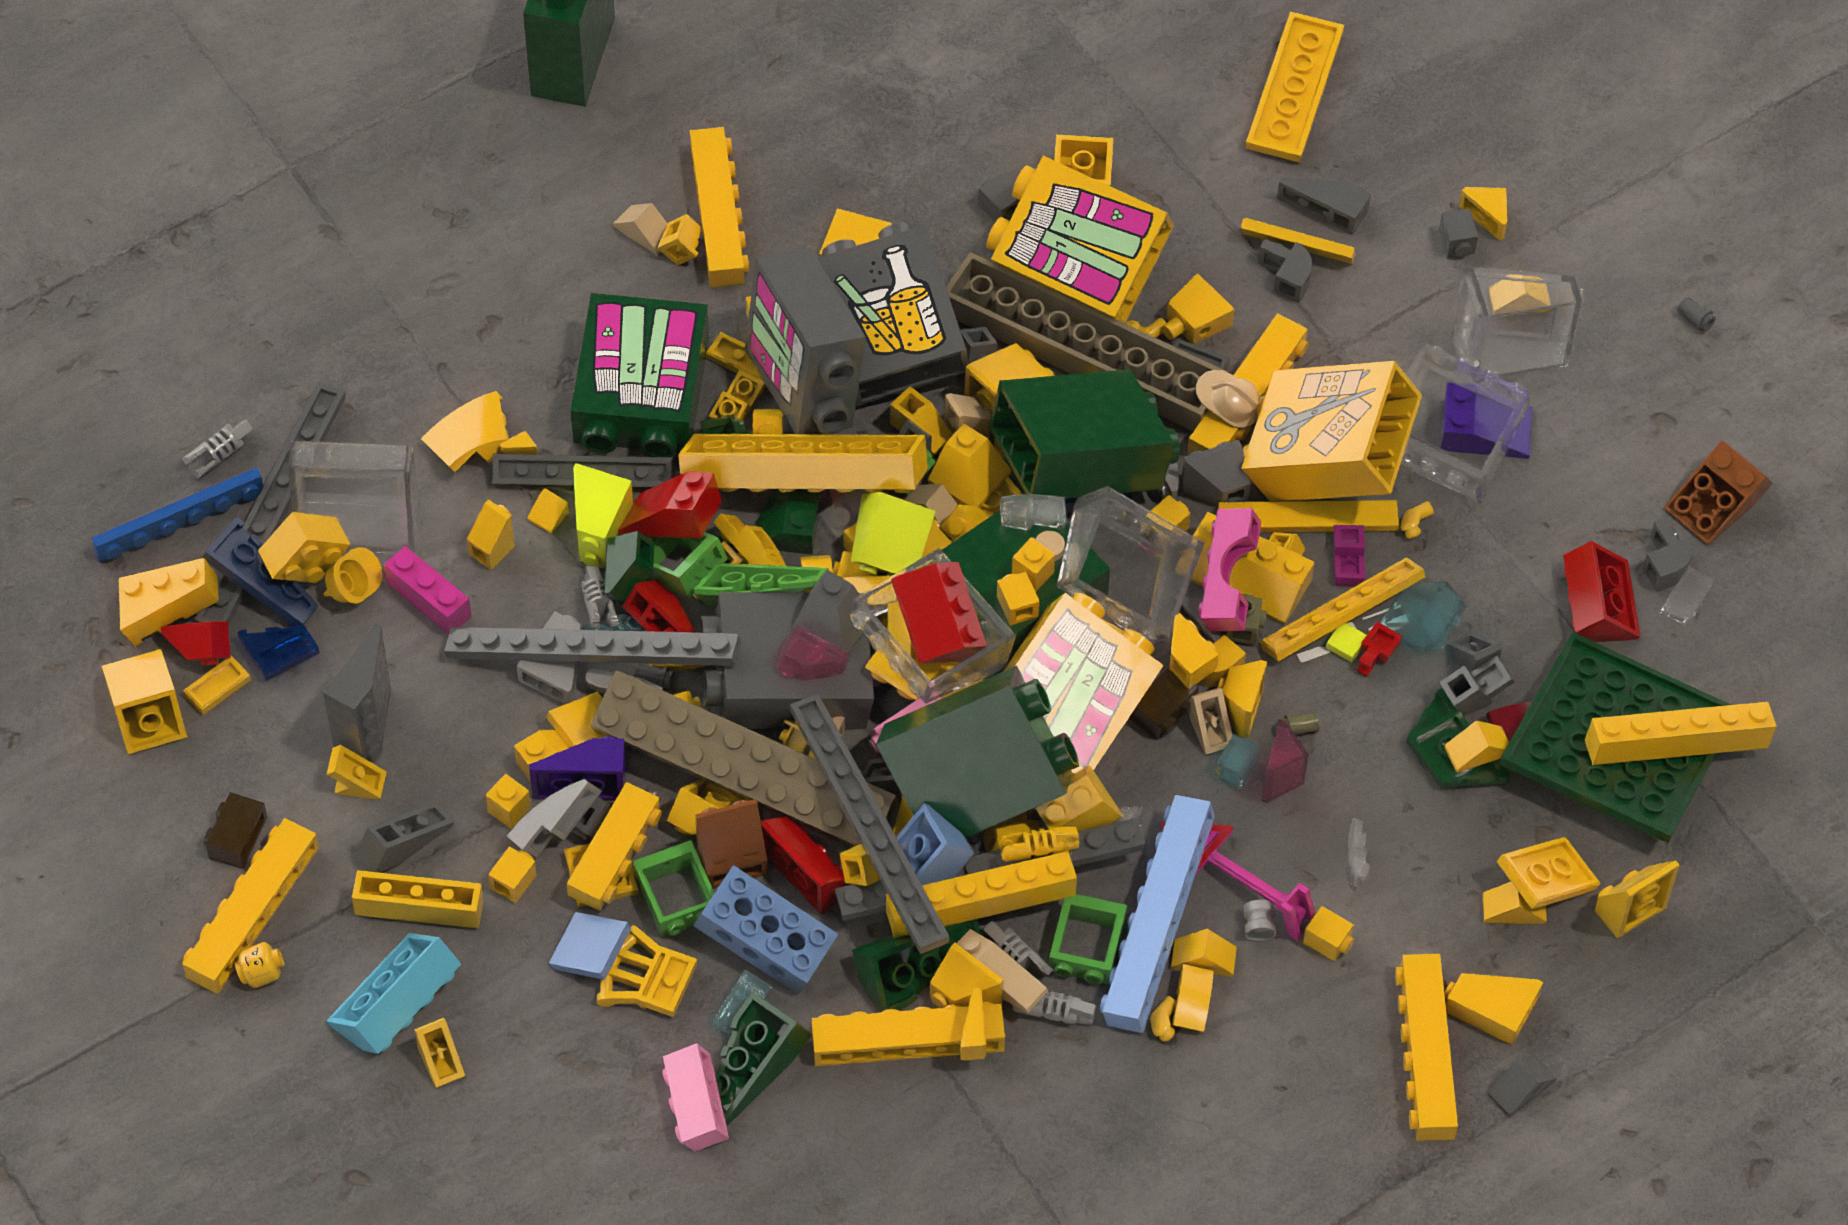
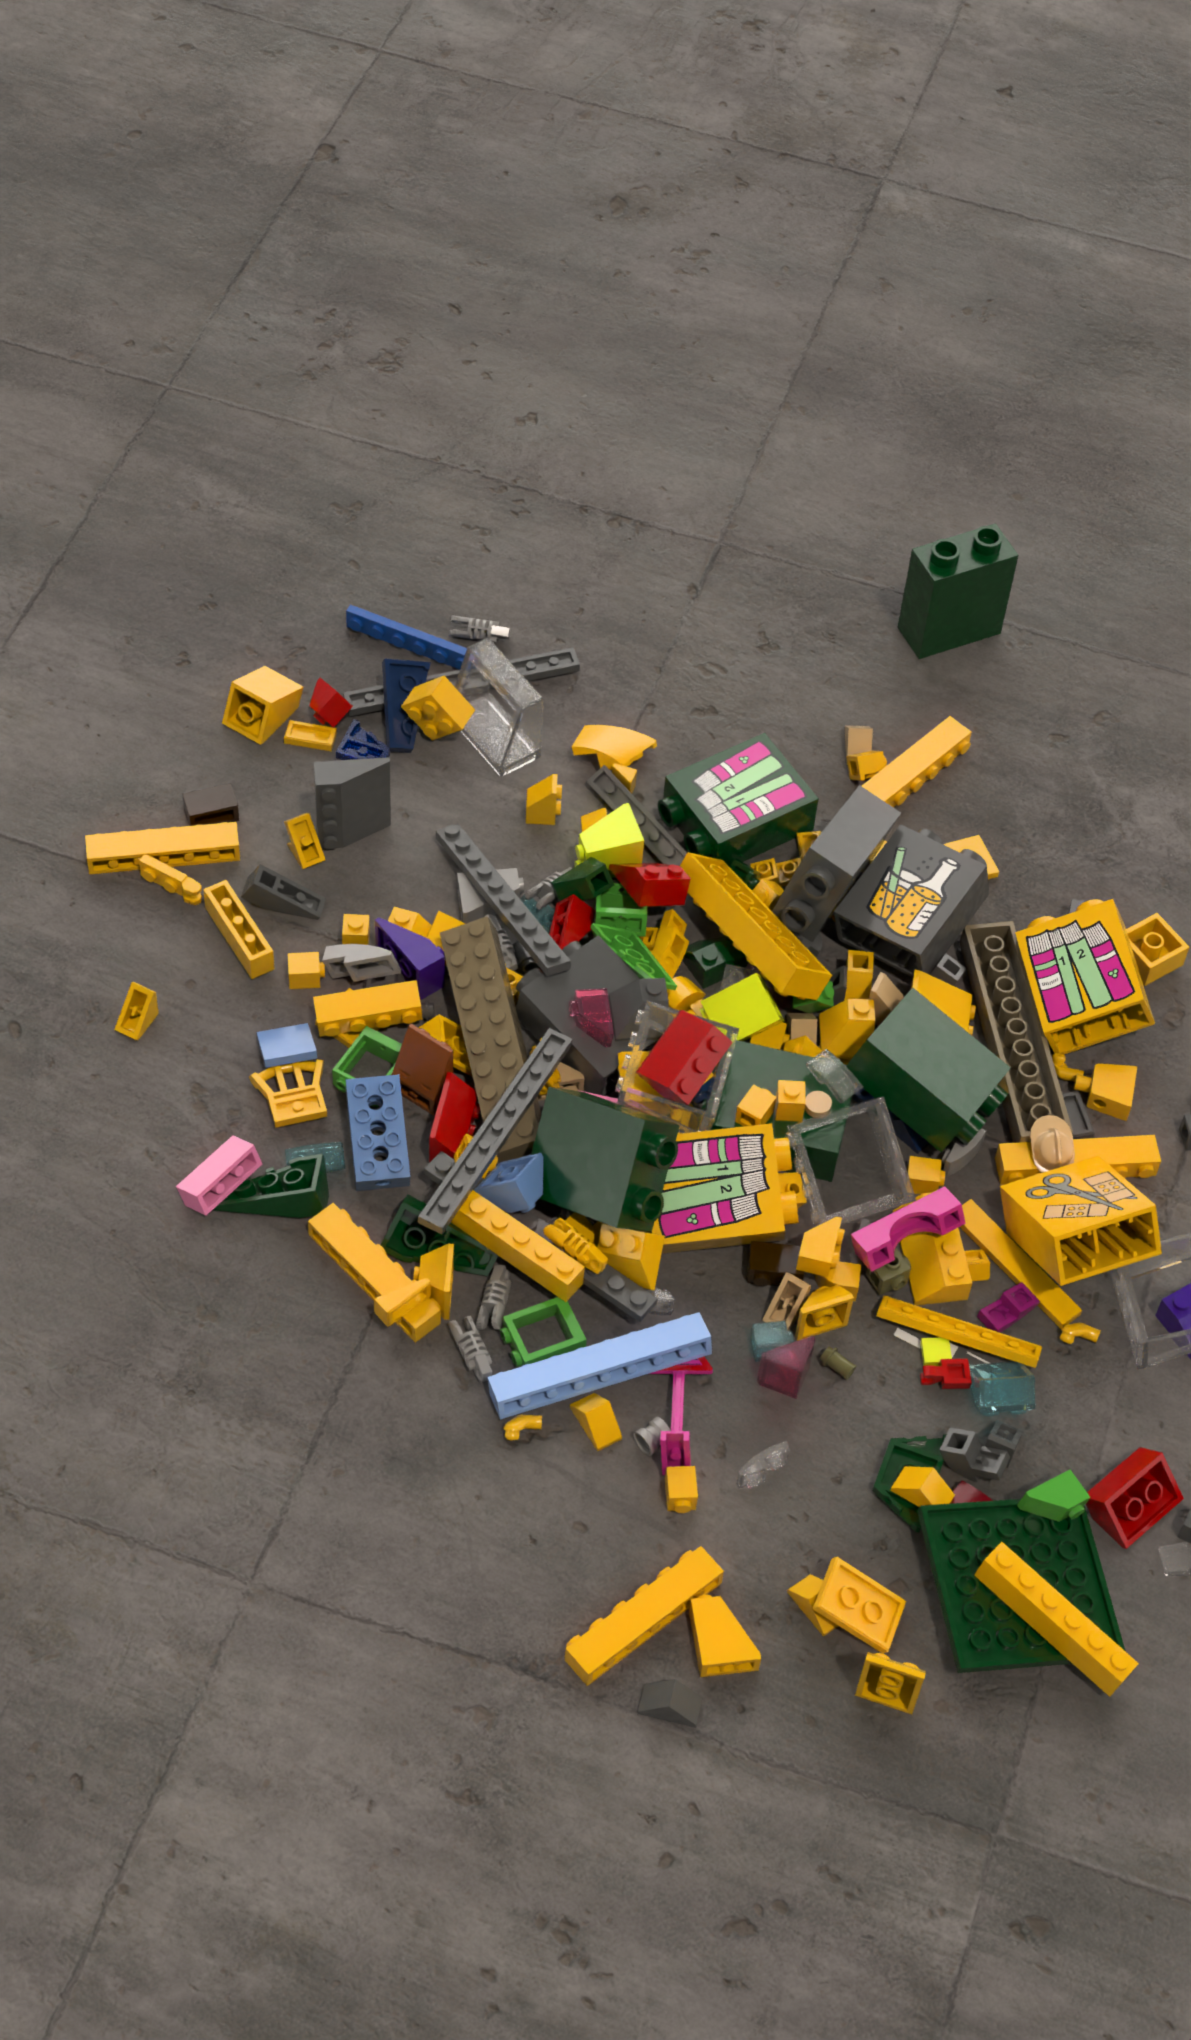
camera: 50 degrees right, 5 degrees down
(164, 596) = (341, 664): yellow wedge -> none
(259, 965) = (122, 878): yellow head -> none
(299, 922) = (170, 879): none -> yellow hinge
(354, 576) = (449, 751): yellow piece -> none
(395, 992) = (162, 962): medium azure slope -> none
(427, 590) = (473, 795): dark pink brick -> none
(1019, 985) = (464, 1292): tan slope -> none
(1193, 998) = (553, 1431): yellow slope -> none
(1216, 474) = (984, 1175): dark grey slope -> none
(1570, 649) = (1056, 1498): none -> bright green slope

